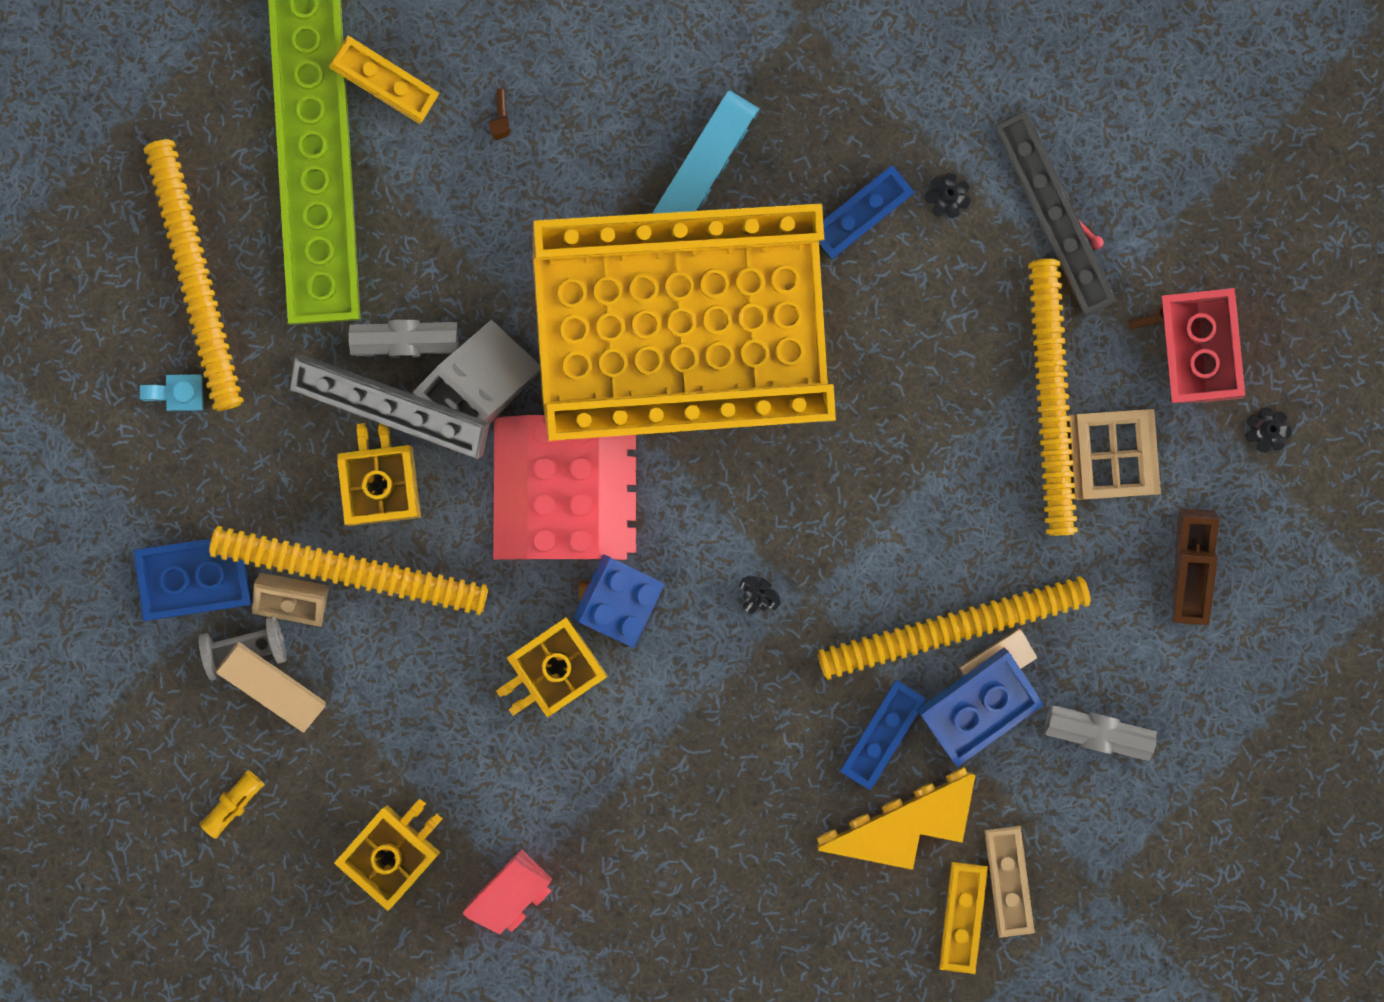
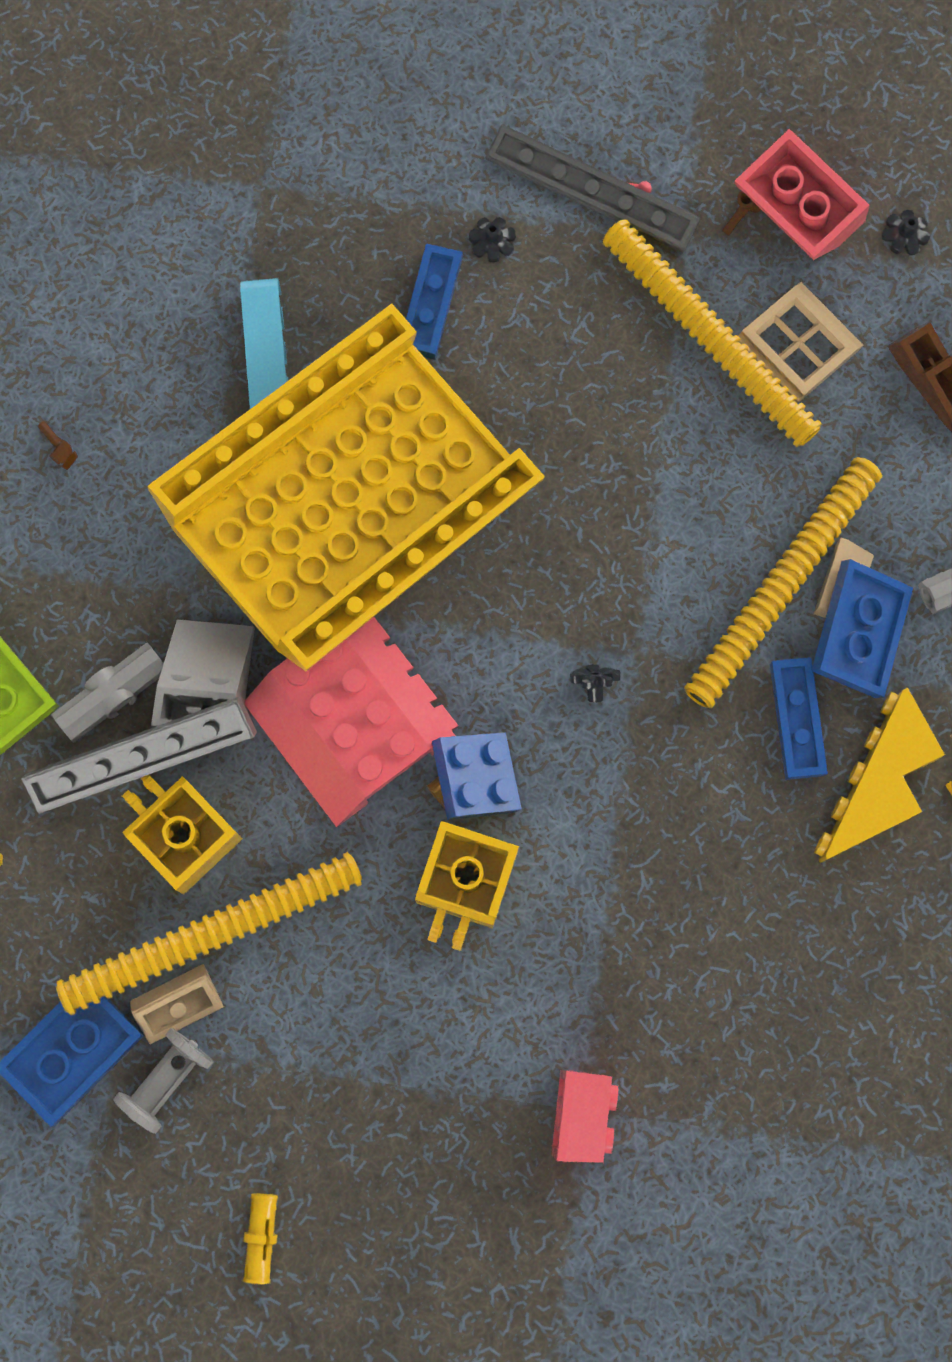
camera: 35 degrees left, 10 degrees down
(271, 687) = (216, 1096): tan tile -> none
(393, 833) = (425, 1149): yellow hinge -> none

